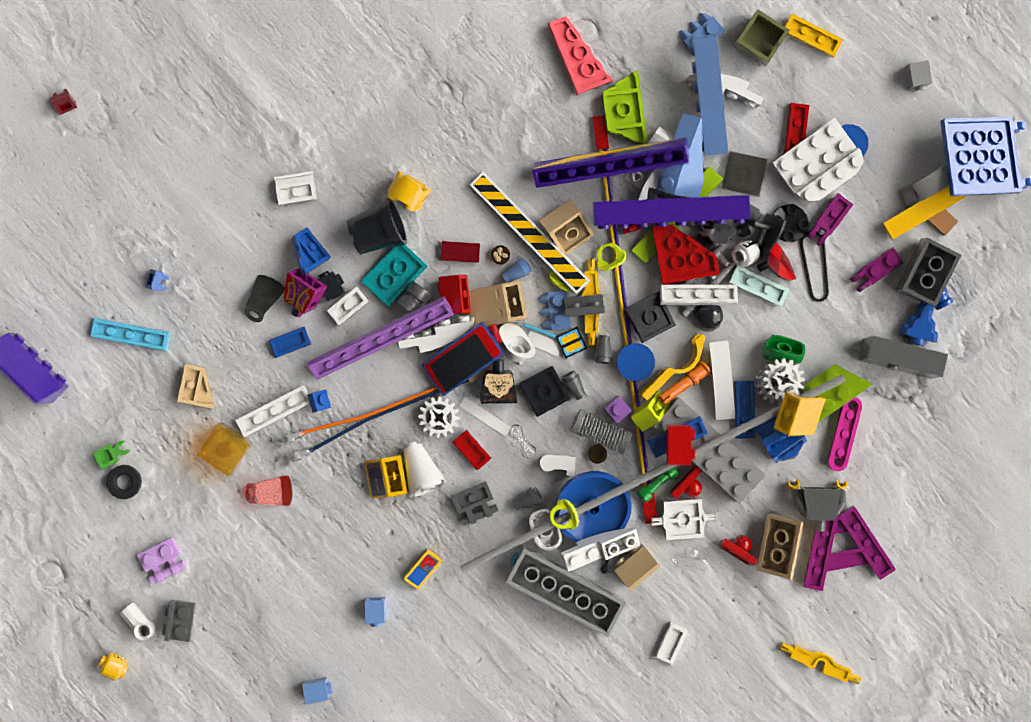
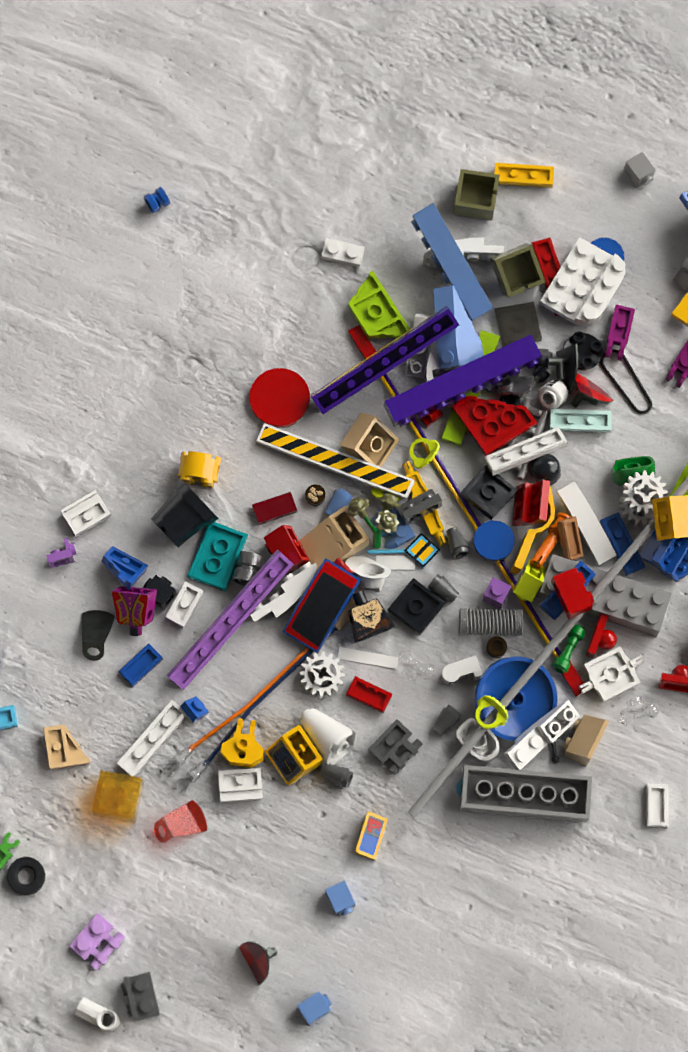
camera: 25 degrees left, 15 degrees down
(257, 219) = (61, 557): none -> medium lavender bracket
(286, 633) = (257, 959): none -> shield
(332, 481) = (240, 785): none -> white plate
(348, 450) = (243, 745): none -> yellow hinge
(416, 507) = (338, 775): none -> dark grey cone
(506, 153) = (279, 397): none -> red tile
(548, 310) = (385, 520): none -> olive plant
(580, 64) = (315, 288): coral wing -> none
(619, 40) = (343, 252): none -> white plate
(682, 343) = (531, 503): none -> red slope
(701, 389) = (570, 538): none -> medium nougat tile
(709, 26) = (418, 203): medium blue plate -> none
(765, 122) = (517, 268): none -> olive piece

